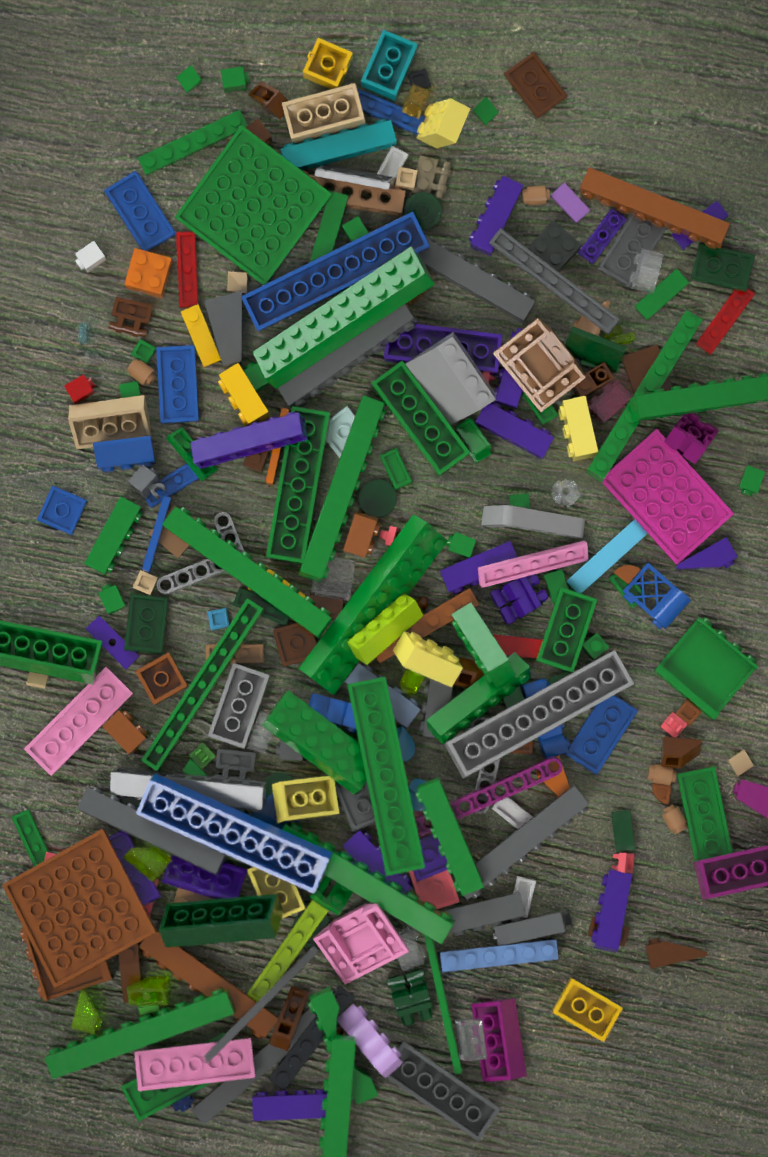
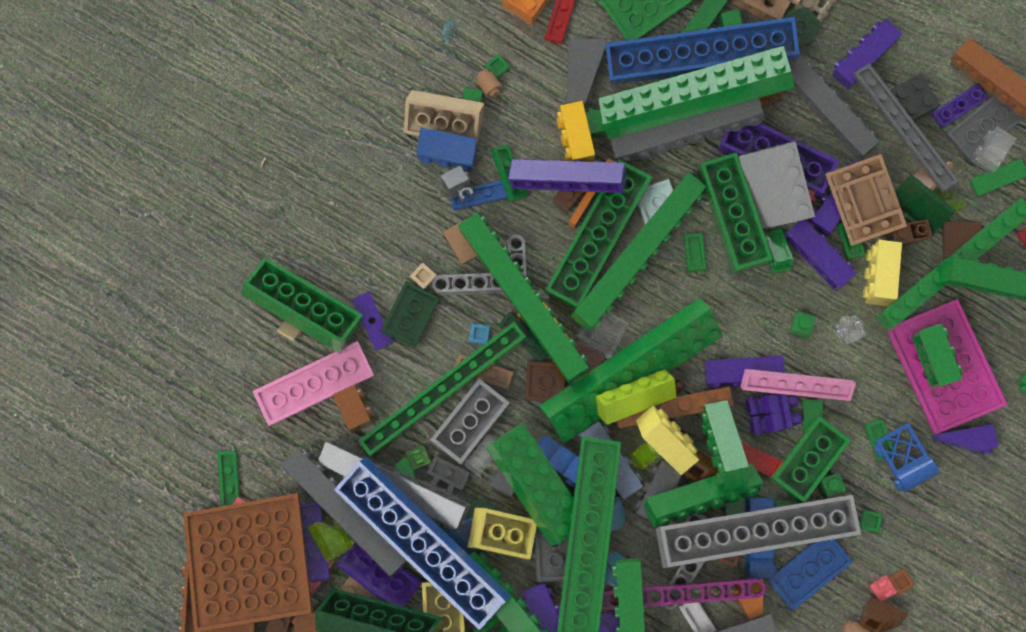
camera: 20 degrees right, 5 degrees down
(62, 510) = (370, 183): blue tile -> none
(80, 389) = (427, 79): red brick -> none
(112, 599) = (386, 280): green brick -> none
(113, 536) = (409, 222): green brick -> none
(131, 311) = (500, 26): reddish brown plate -> none
(156, 535) = (449, 235): blue tile -> none
(161, 679) = (406, 370): dark orange brick -> none
(177, 384) = (518, 105): blue plate -> none
(200, 335) = (555, 68): yellow slope -> none
(237, 282) = (606, 31): tan slope -> none
(361, 534) = (643, 300): dark orange brick -> none
(377, 498) = (668, 273): dark green tile -> none
(390, 535) = (668, 312): coral tile -> none
(461, 545) = (733, 344): green brick -> none
(533, 520) = (811, 342): light grey beam -> none
(535, 195) = (909, 48): medium nougat brick -> none
(570, 203) = (939, 66): medium lavender tile -> none
(607, 557) = (870, 403): medium azure beam -> none
(609, 402) = (919, 259): clear pink brick -> none
(626, 573) = (884, 425): dark orange tile -> none
(643, 666) = (870, 521): none -> green tile
(653, 492) = (937, 356): none -> green brick
(691, 437) = (989, 317): magenta brick -> none
(706, 668) = (932, 544): green panel -> none

